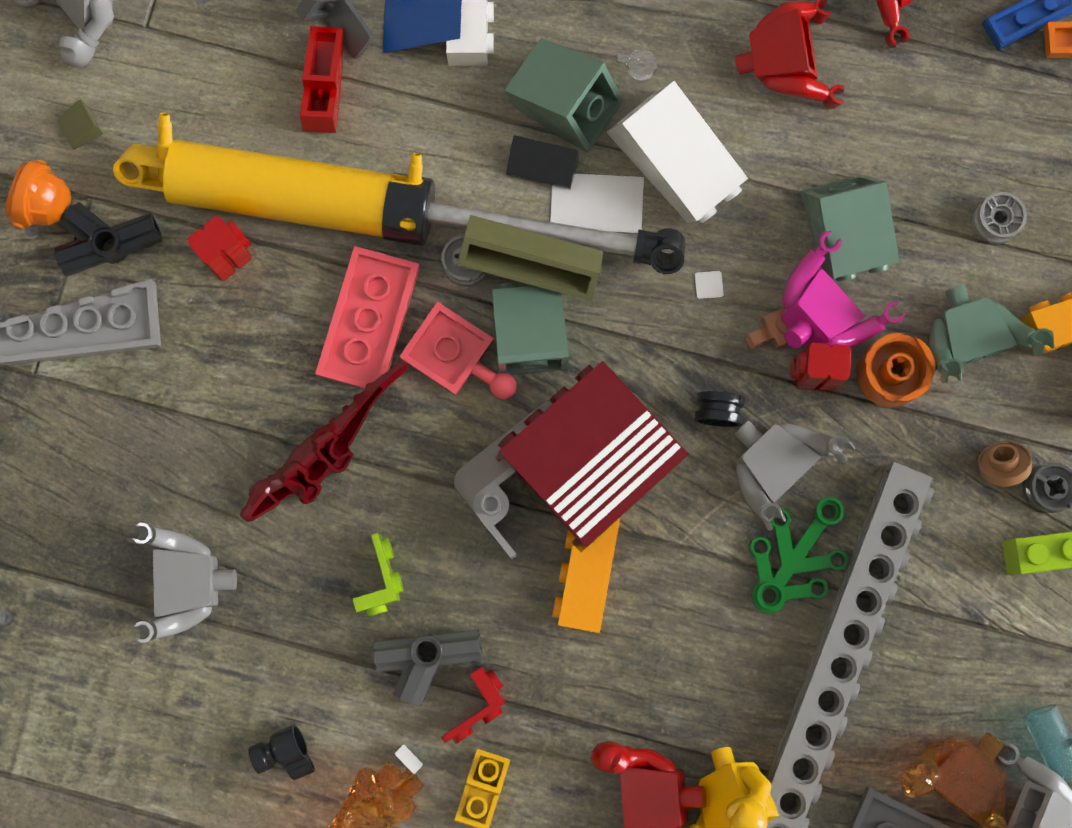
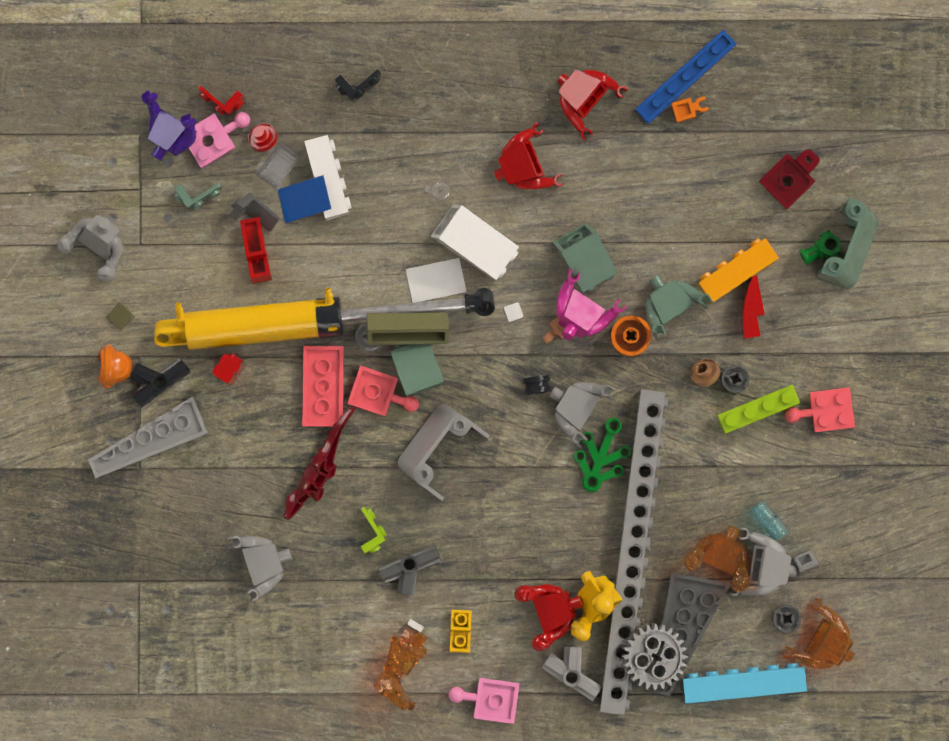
camera: 10 degrees left, 5 degrees up
(285, 748) = (346, 638): black piece -> none
(489, 686) = (448, 573): red bracket -> none
(542, 162) = (398, 266): black slope -> none
(565, 93) = (400, 222): sand green slope -> none
(586, 582) = (486, 489): light orange brick -> none
(592, 453) = (471, 430): dark red panel -> none
(821, 367) = (587, 346): red brick -> none
(1008, 208) = (673, 221): light grey wheel -> none

